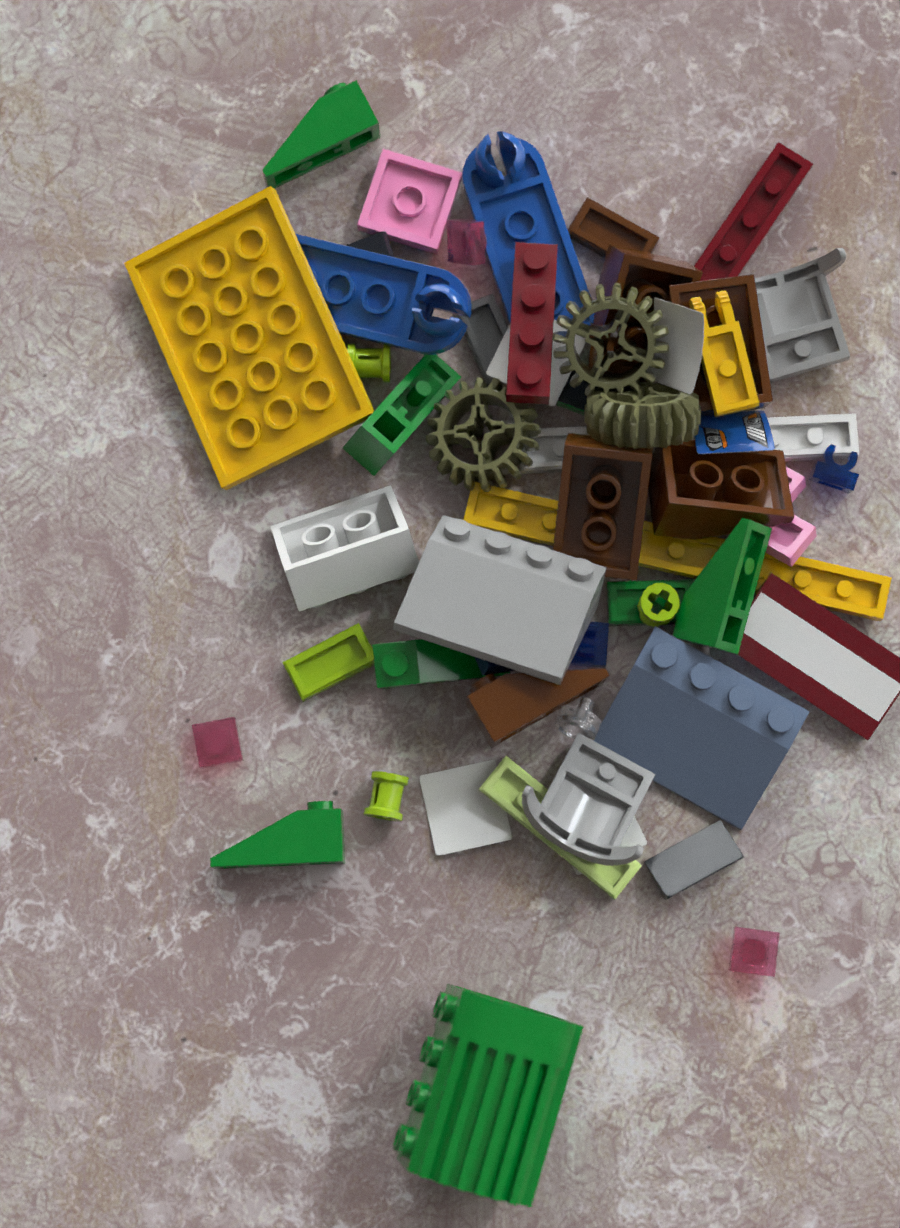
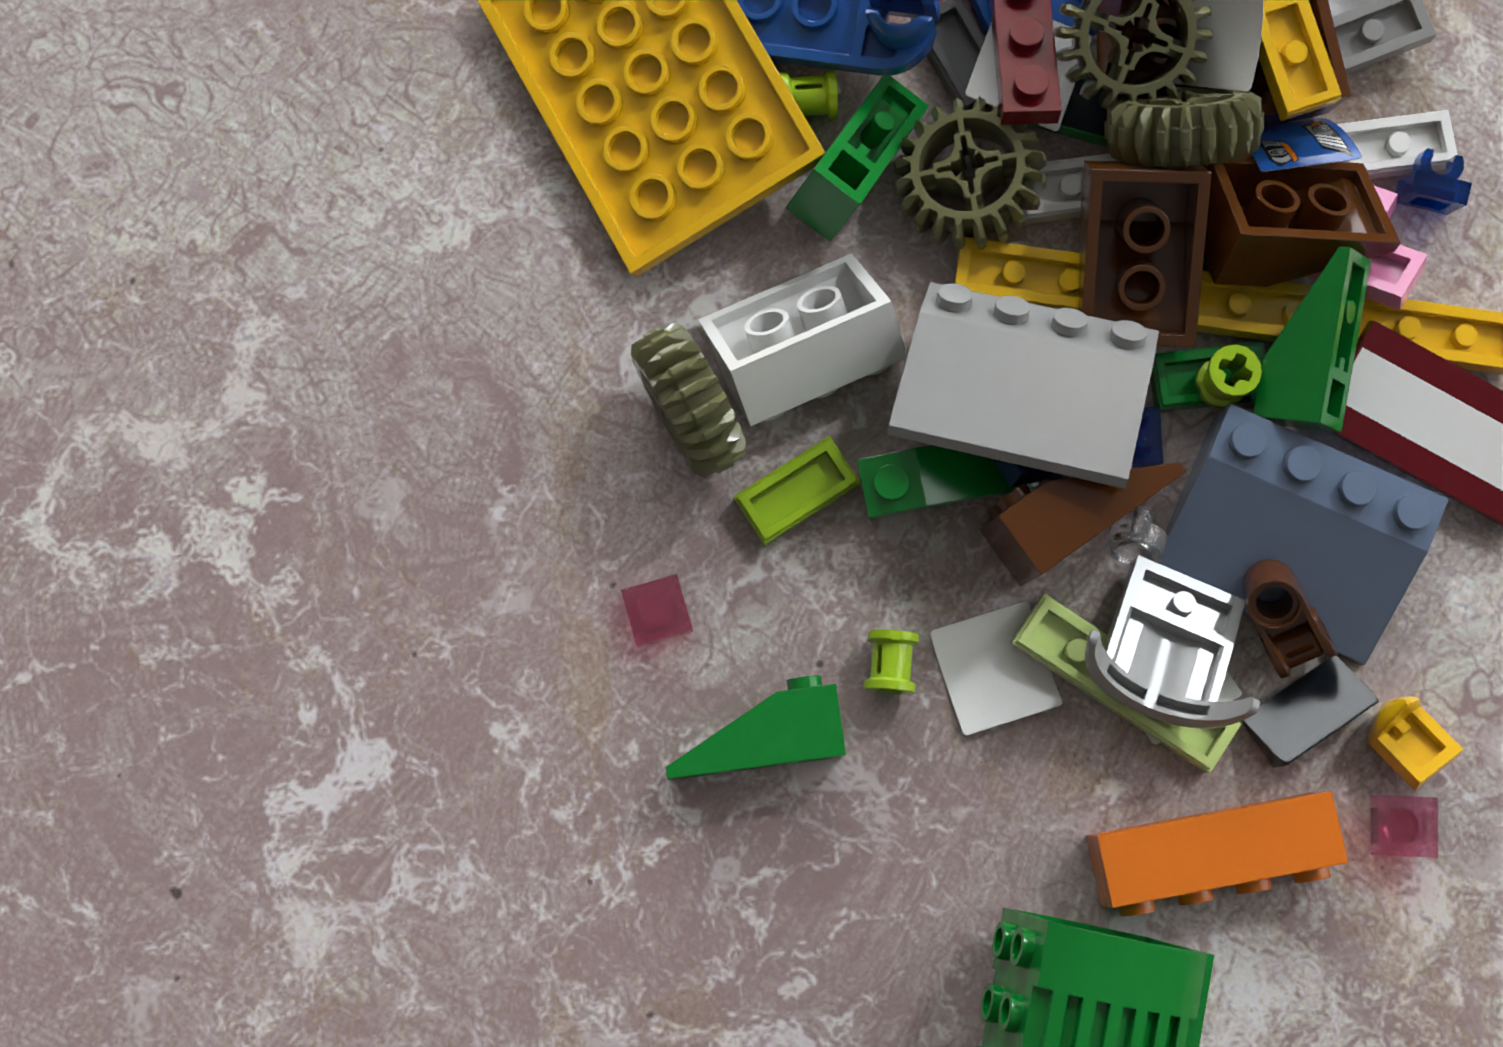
camera: 10 degrees left, 0 degrees up
(252, 589) = (689, 399): none -> olive gear
(611, 955) = (1217, 850): none -> orange brick
(682, 797) = (1289, 626): none -> reddish brown piece
(767, 889) = (1411, 741): none -> yellow plate

